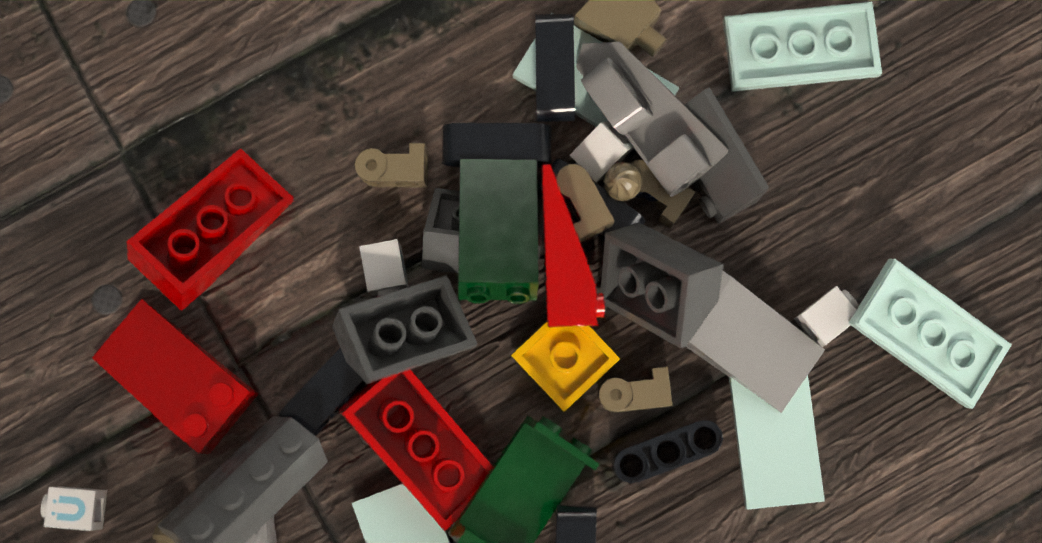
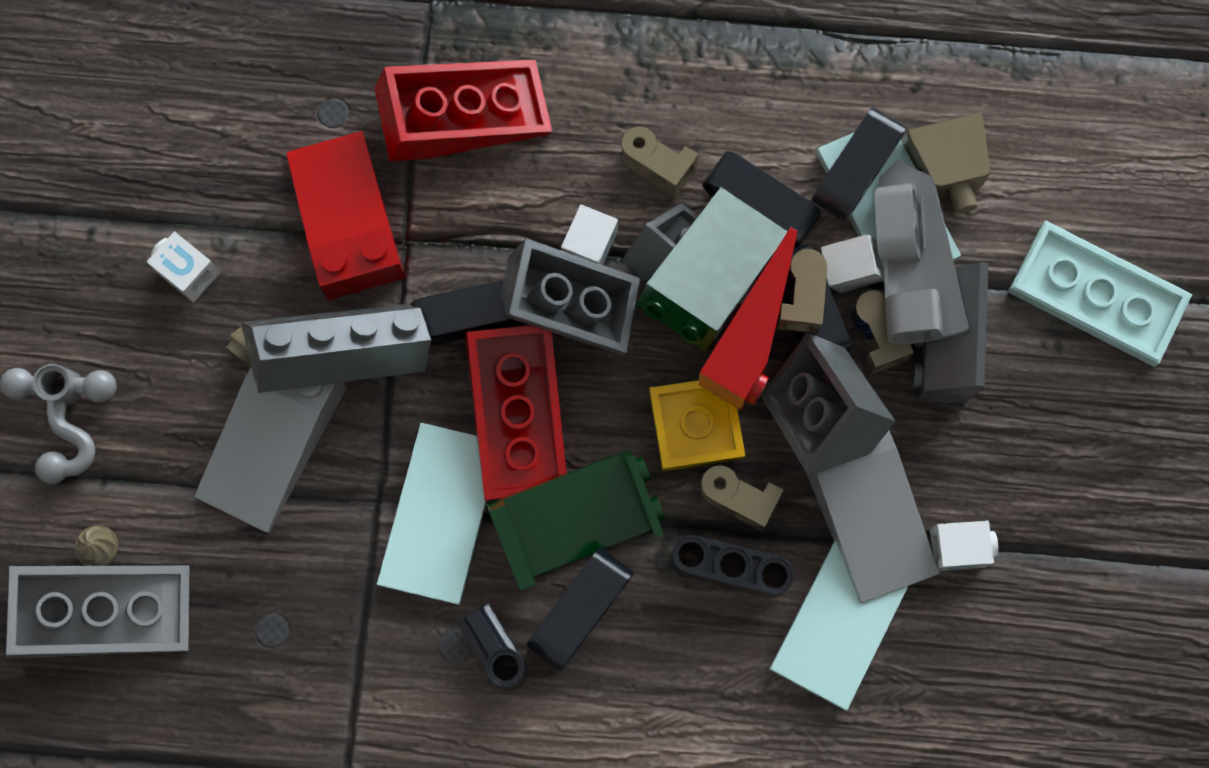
camera: 30 degrees right, 5 degrees down
(623, 181) = (854, 299): dark tan plate -> none
(930, 333) = (1048, 624): light aqua tile -> none

